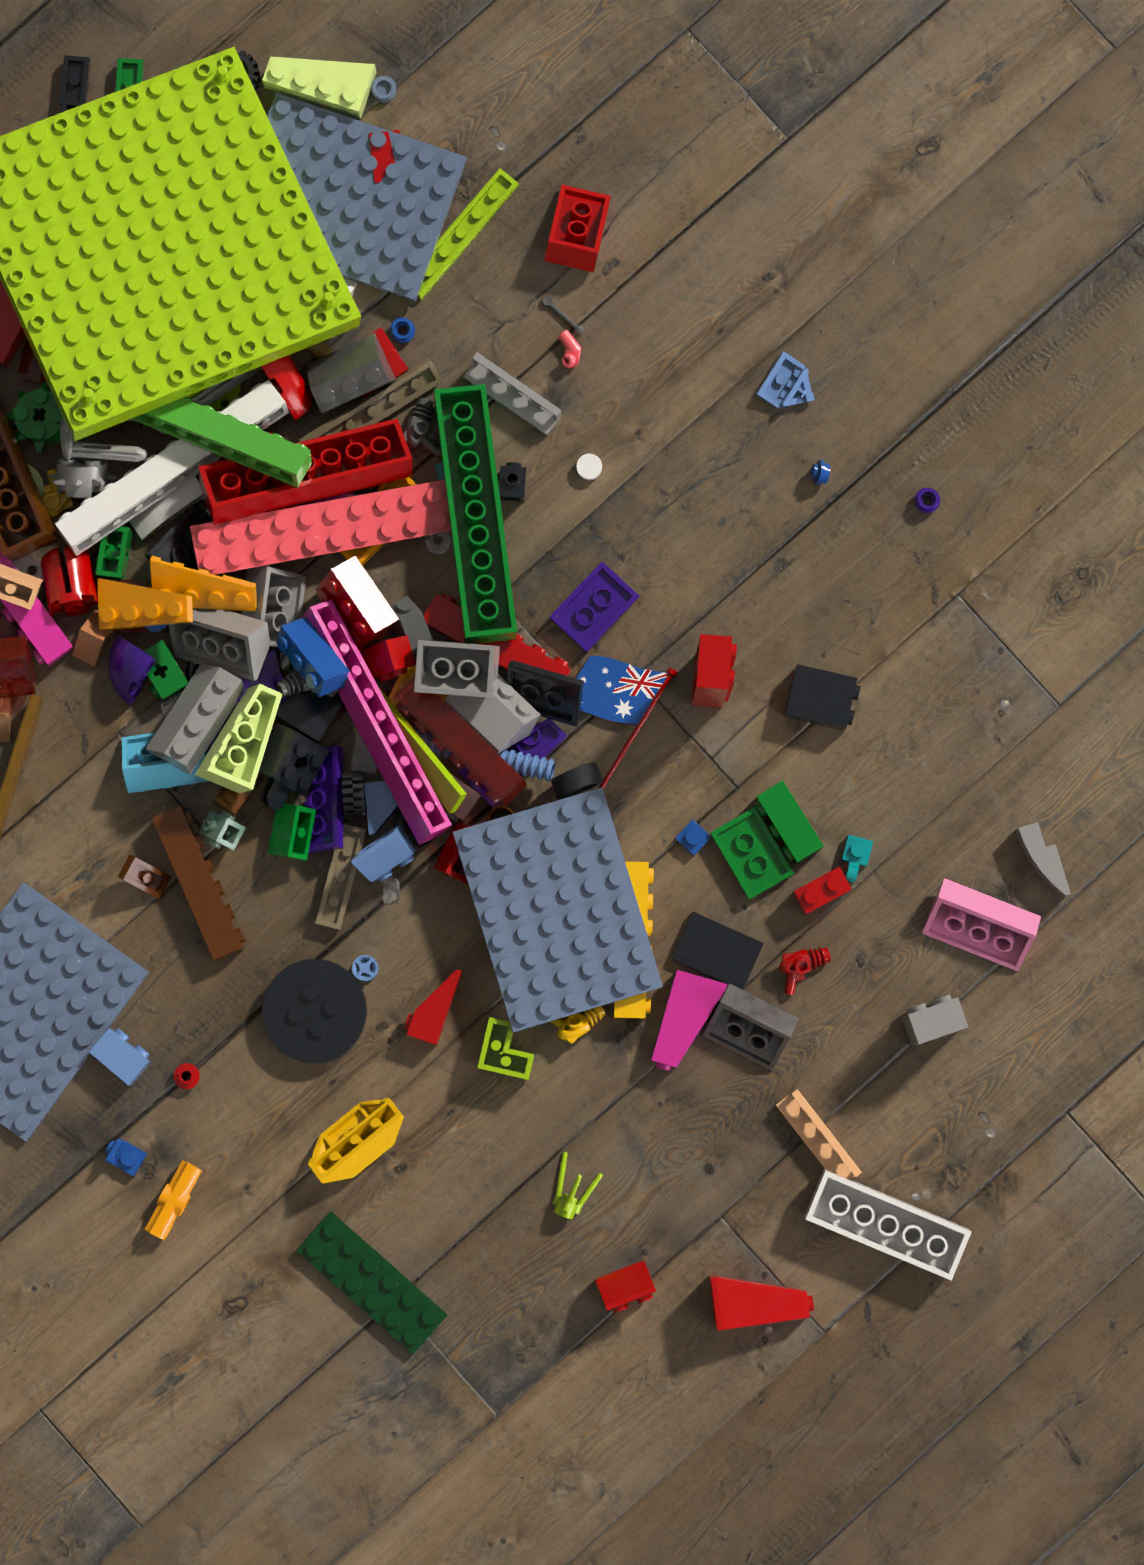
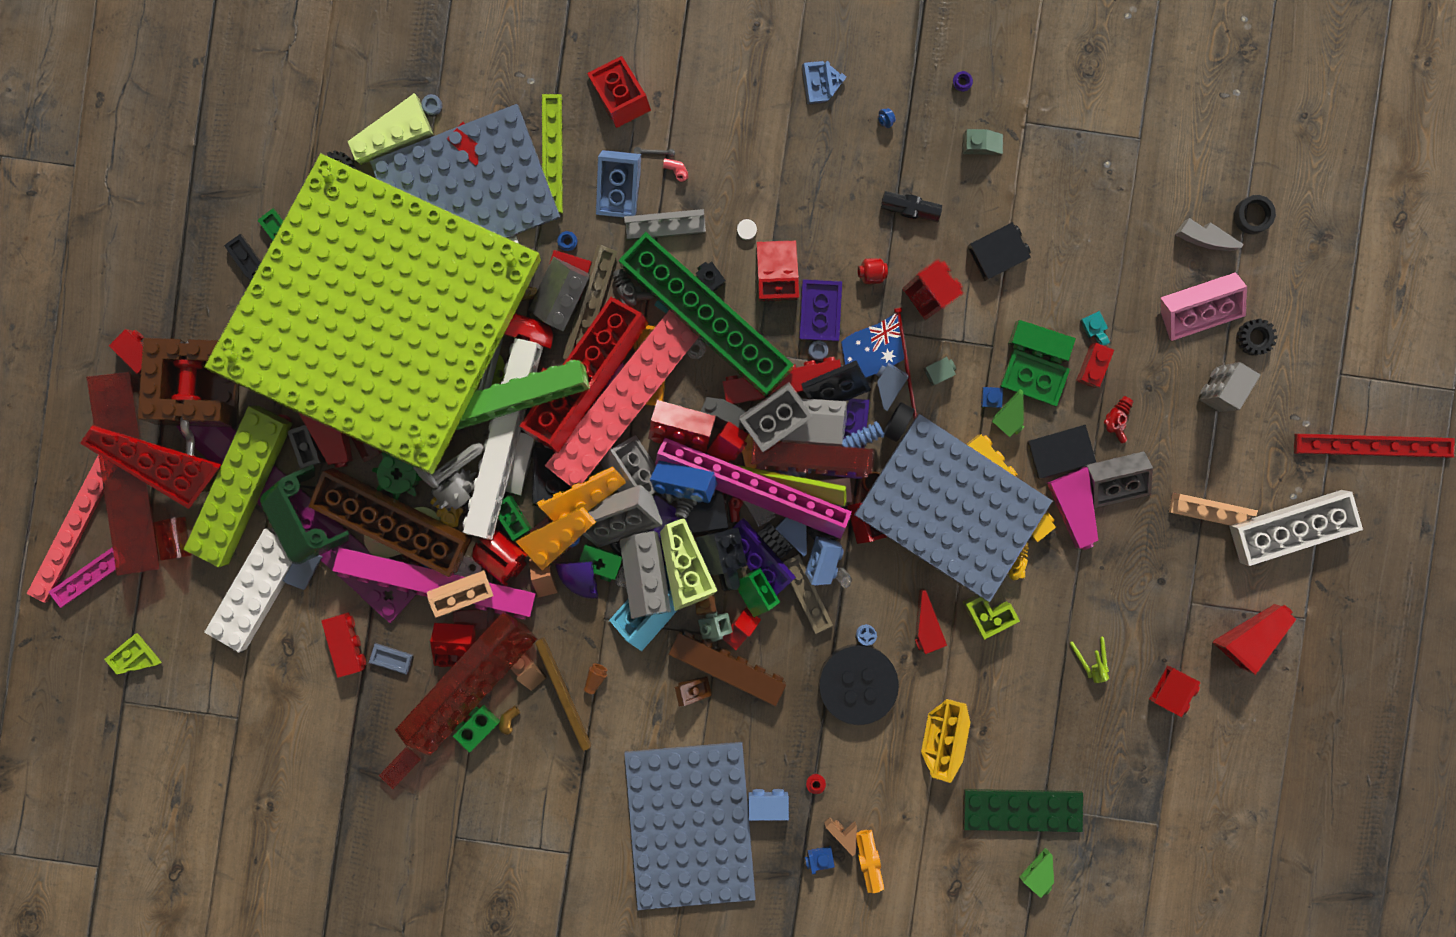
camera: 40 degrees left, 5 degrees up
(60, 781) = (595, 677): none -> dark orange cone
(170, 1158) = (847, 837): none -> medium nougat slope
(245, 856) = (742, 628): none -> red slope
(332, 1361) = (1040, 874): none -> bright green slope
(343, 729) = (734, 506): none -> red arm
(499, 315) = (617, 183): none -> medium blue slope
(559, 644) = (818, 350): none -> sand blue tile
(583, 532) = (777, 271): none -> slope
(600, 736) = (890, 383): none -> sand blue slope
(662, 766) = (940, 371): none -> sand green brick
(678, 611) = (872, 271): none -> red head
(696, 870) = (1011, 415): none -> bright green slope
(771, 580) = (911, 206): none -> black piece
(896, 577) = (982, 142): none -> sand green slope
(1026, 1000) = (1268, 334): none -> black tyre
(1040, 1213) = (1374, 445): none -> red tile
(1126, 864) = (1270, 214): none -> black tyre

